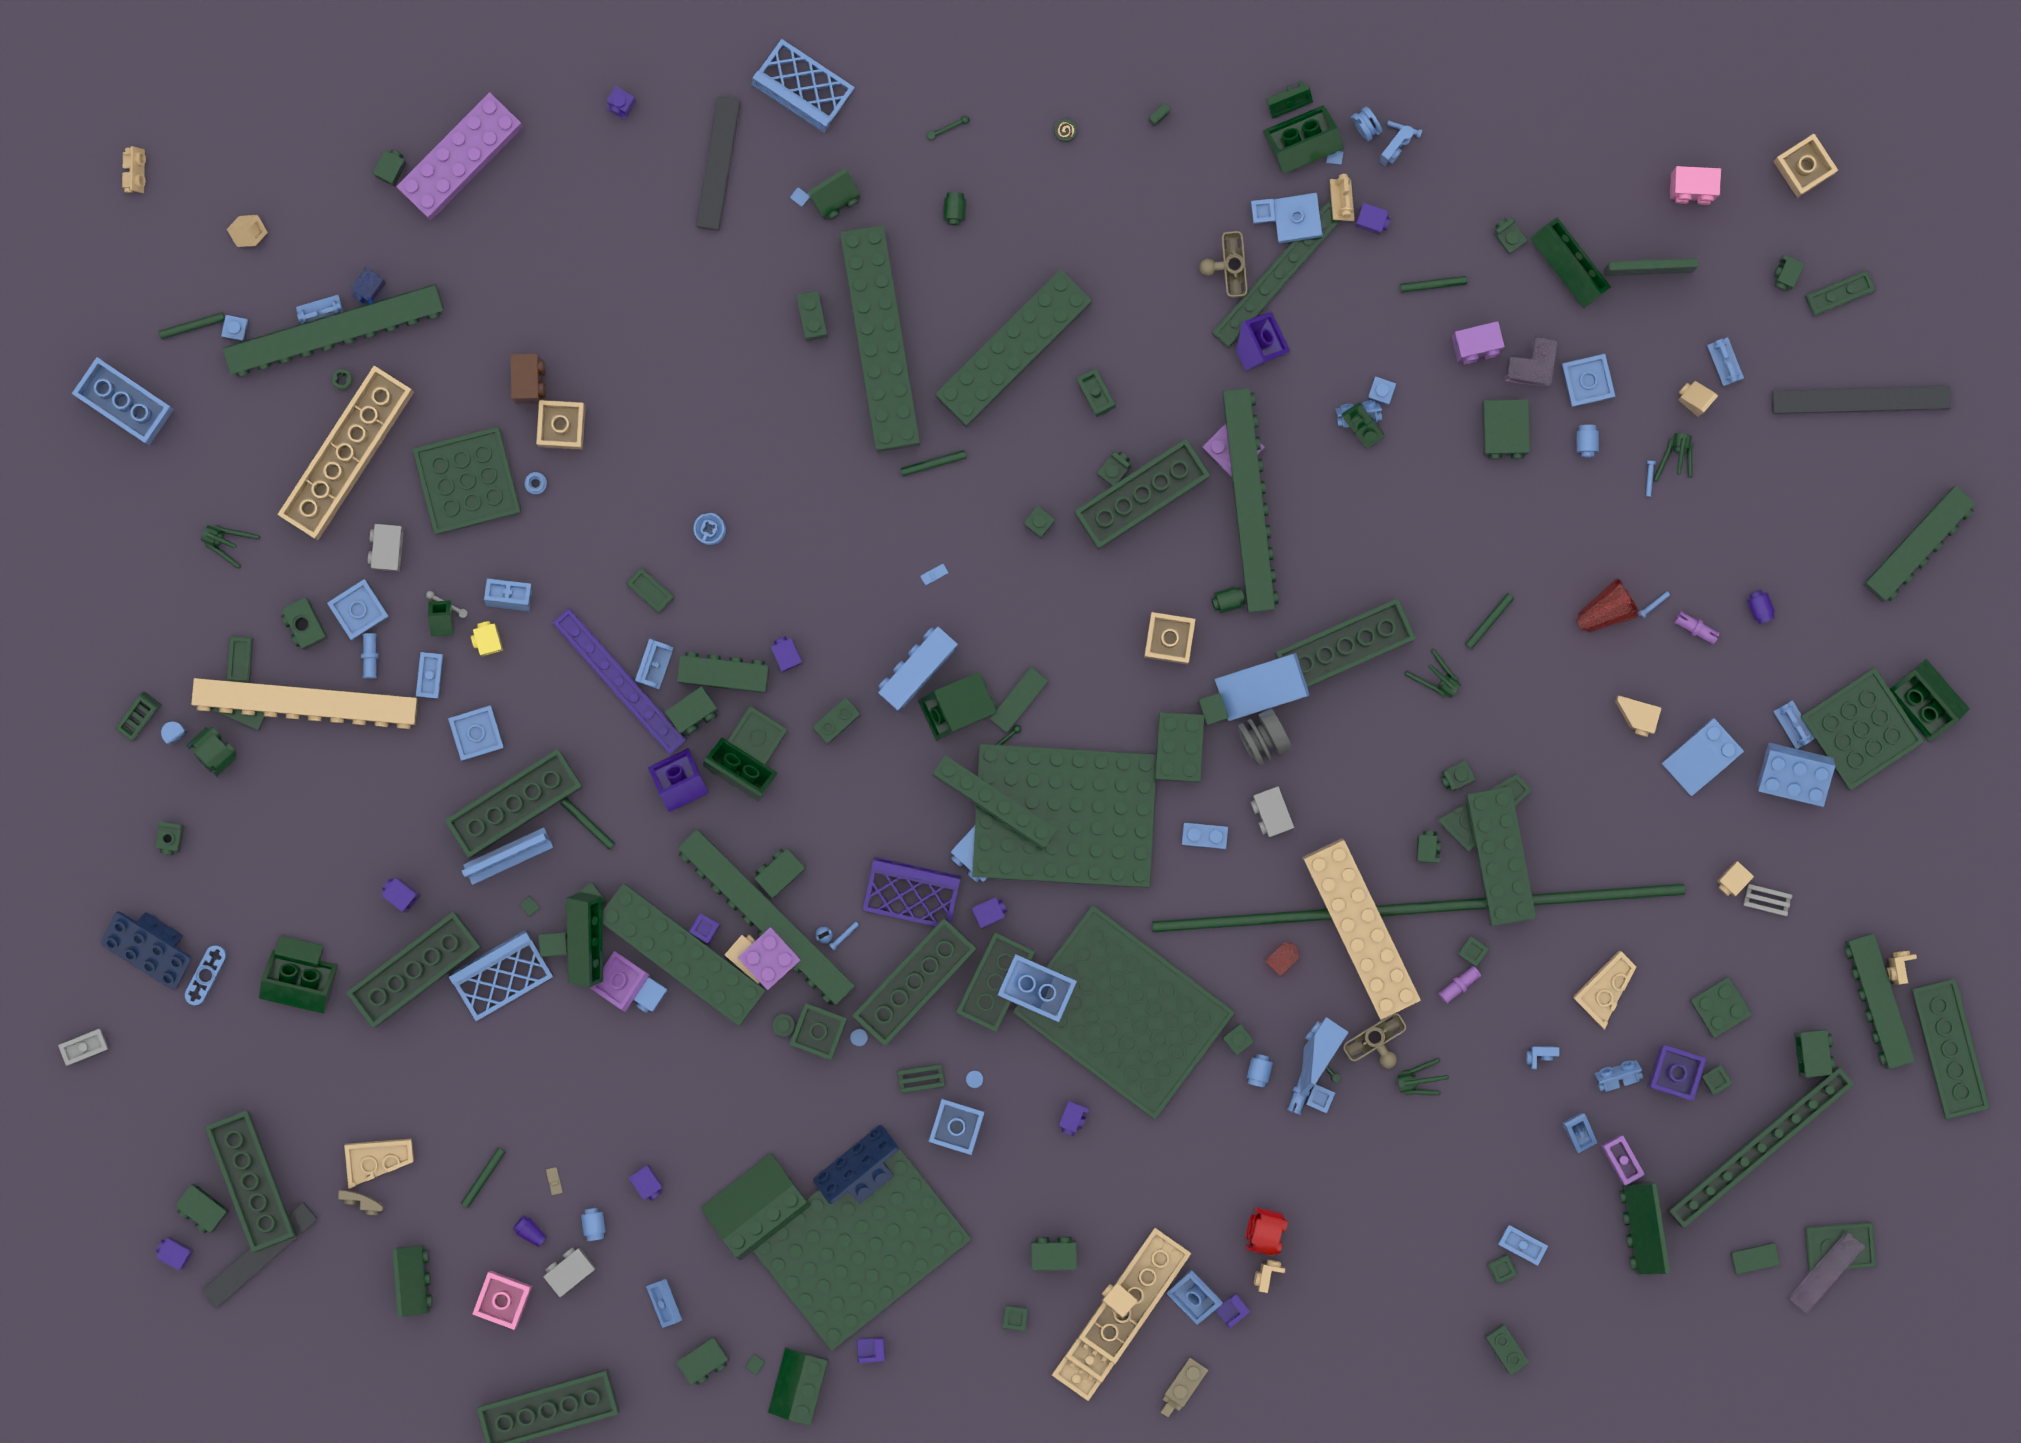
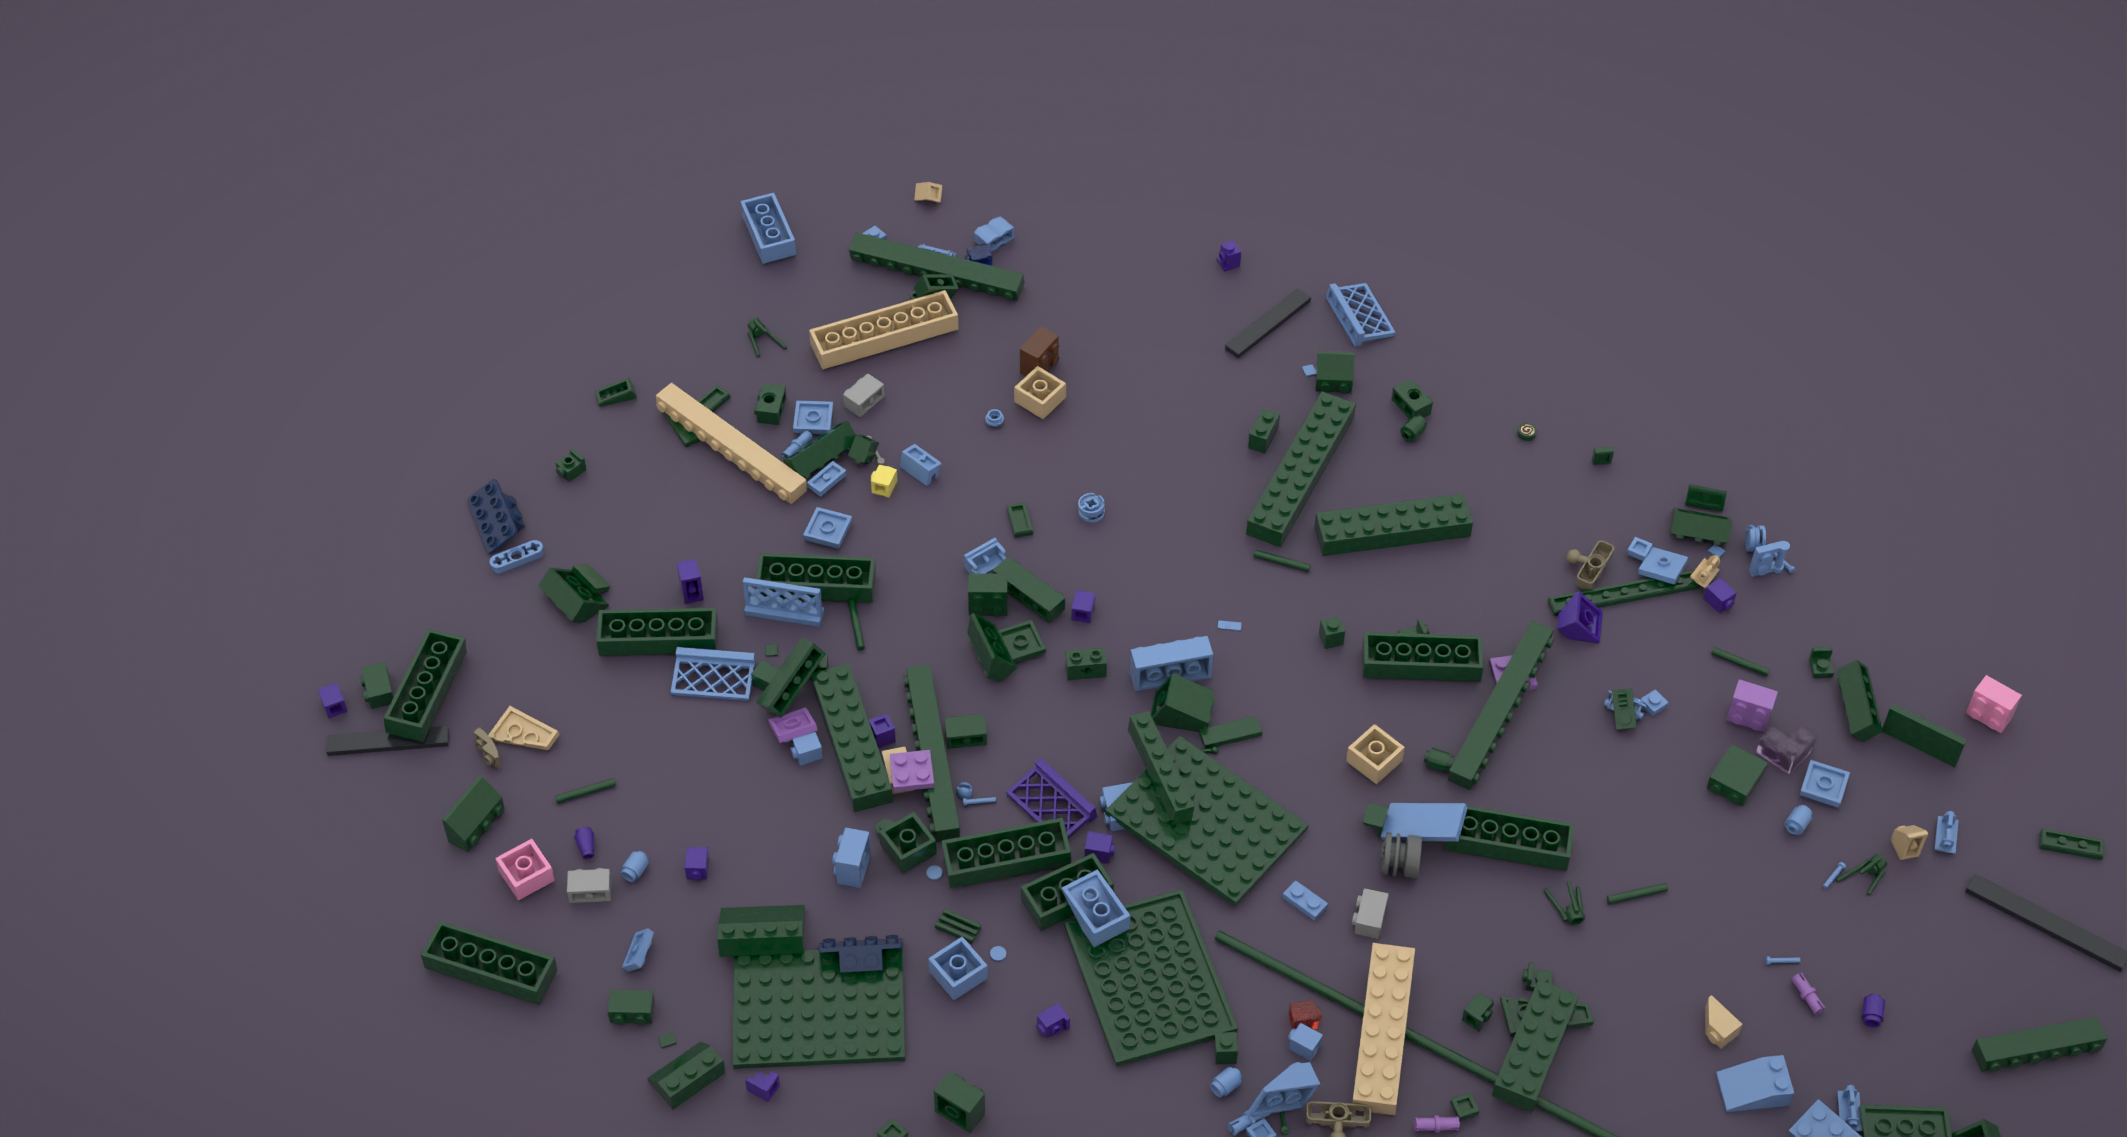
camera: 35 degrees right, 35 degrees down
(83, 1047) = (397, 546): light grey plate -> none
(135, 160) = (887, 129): tan hinge -> none
(172, 732) = (629, 411): medium blue brick -> none
(189, 326) = (845, 220): dark green bar -> none
(212, 751) = (645, 432): dark green brick -> none
(358, 241) = (994, 233): none -> medium blue brick
(359, 364) = (936, 283): none -> dark green brick
(390, 167) = (1048, 209): dark green brick -> none
(401, 649) = (822, 449): none -> dark green brick
(460, 156) = (1099, 227): medium lavender brick -> none
(466, 480) = (949, 391): dark green plate -> none
(554, 1181) = (632, 826): dark tan piece -> none
(619, 681) = (952, 559): dark purple tile -> none
(678, 780) = (941, 635): dark purple slope -> none
(783, 1084) = (852, 857): none -> medium blue brick
(931, 135) = (1428, 386): dark green hinge -> none
(938, 182) = (1411, 399): none -> dark green brick
(1096, 392) = (1434, 583): dark green plate -> none
(1179, 747) = (1329, 828): dark green brick -> none
(1299, 984) = (1305, 1041): none -> medium blue brick
(1608, 608) = (1741, 934): clear red cone -> none
(1787, 273) = (2035, 804): dark green brick -> none
(1805, 165) = (2092, 743): tan brick -> none

